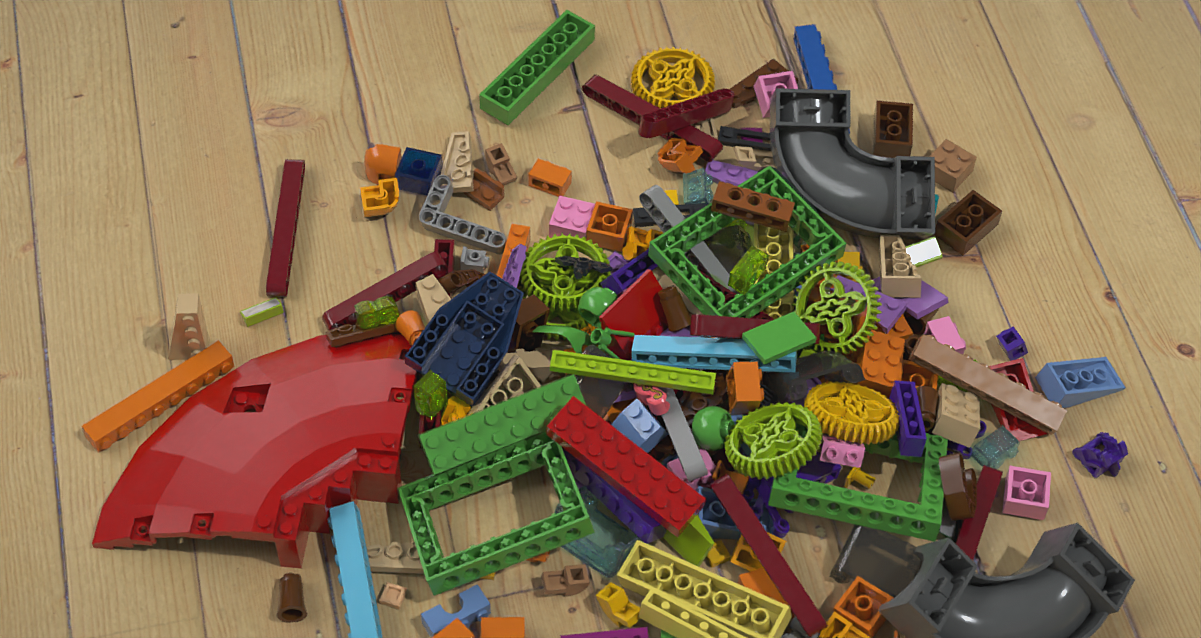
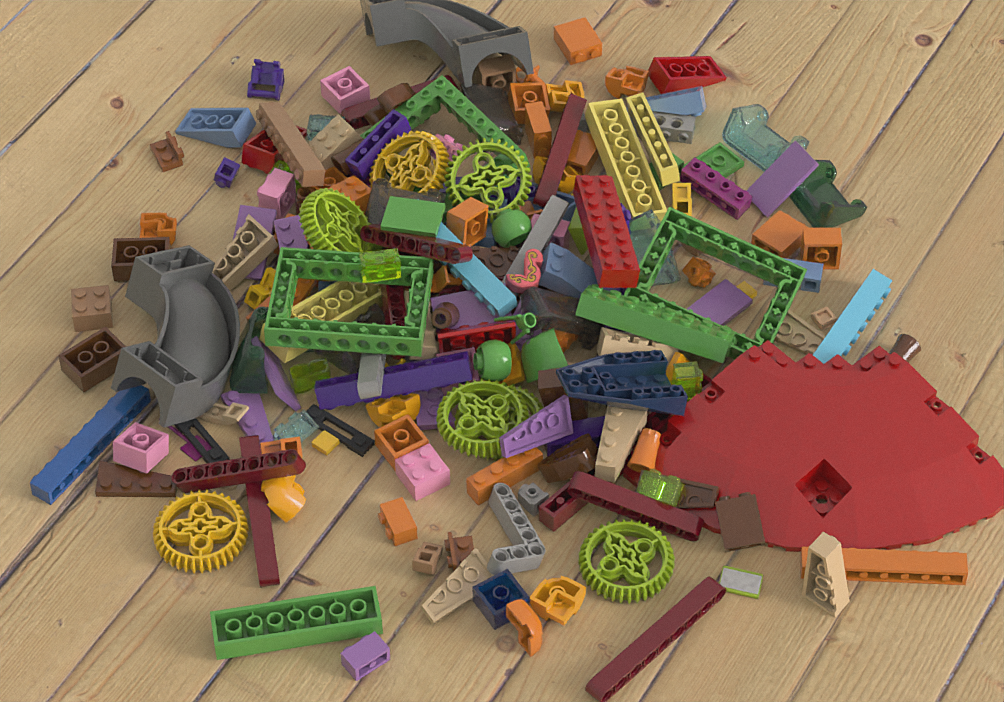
camera: 135 degrees left, 5 degrees down
(294, 338) = (740, 522): none -> reddish brown brick
(356, 263) = (626, 560): none -> lime gear
(473, 82) = (365, 655): none -> medium lavender brick
(492, 514) = (722, 303): none -> medium lavender tile
(583, 265) = (471, 395): black piece -> none
(632, 372) = (535, 277): lime plate -> none
(642, 145) = (284, 496): none -> light orange brick
(743, 206) = (319, 302): dark orange brick -> none
(821, 579) = (538, 129): none -> orange brick
(991, 253) = (158, 226): none -> orange brick
(1082, 331) = (167, 153): none -> dark orange bracket

